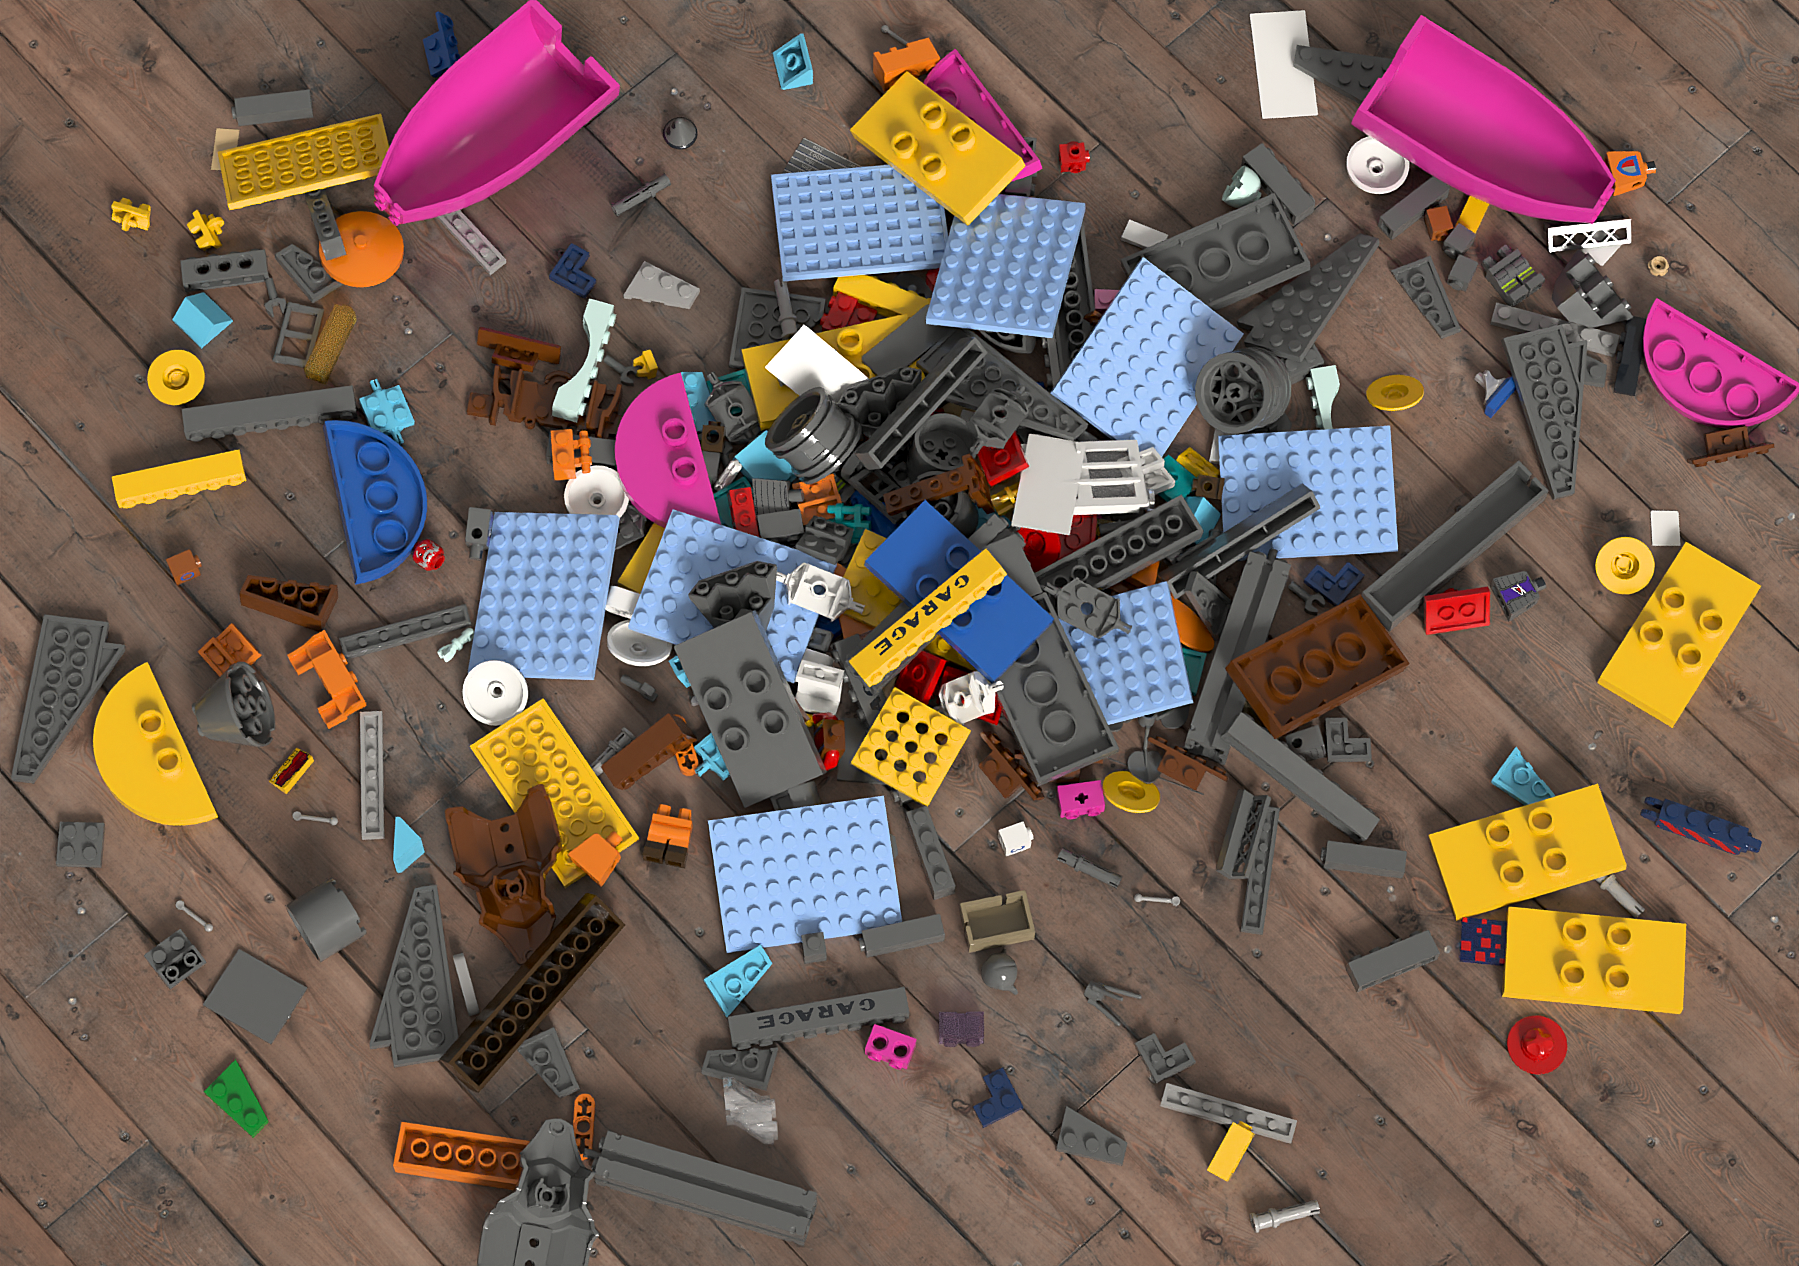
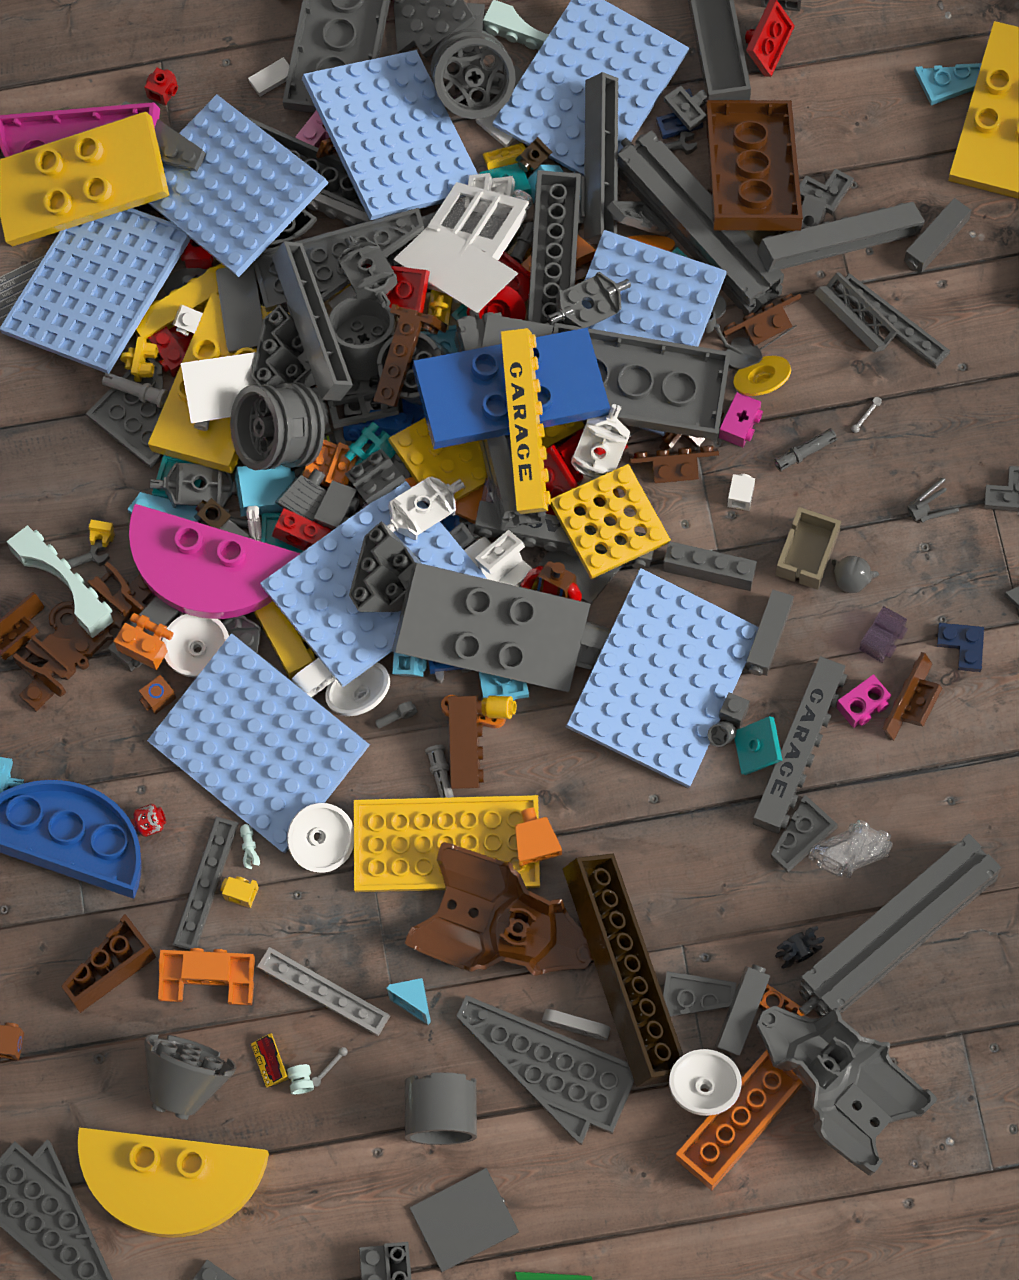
camera: 50 degrees left, 0 degrees up
(181, 906) = (331, 1236): light grey hinge -> none
(228, 649) = (119, 1050): orange slope -> none
(289, 802) = (300, 1079): none -> light aqua wheel
(414, 660) = (239, 891): none -> yellow brick
(479, 523) = (152, 756): dark grey torso -> none
(480, 1098) = (705, 1070): none -> white dish
(537, 494) = (156, 695): none -> dark orange brick
(556, 1104) = (742, 1009): none -> dark grey brick
(638, 1118) = (799, 947): none -> black pin
(659, 286) = (34, 480): light grey wing -> none
(672, 830) = (553, 771): orange hips -> none
(693, 760) = (499, 707): none -> yellow brick
(737, 979) = (719, 792): medium azure wing -> none
(786, 949) = (717, 735): none -> dark grey wheel
(794, 984) = (757, 745): none -> teal plate
(812, 295) = (136, 358): none -> yellow hips
(870, 310) = (187, 319): none -> white brick
(919, 1086) = (914, 700): none -> reddish brown bracket
(1012, 203) = (177, 149): none -> dark grey wing
(1341, 581) = (687, 107): none -> dark grey plate

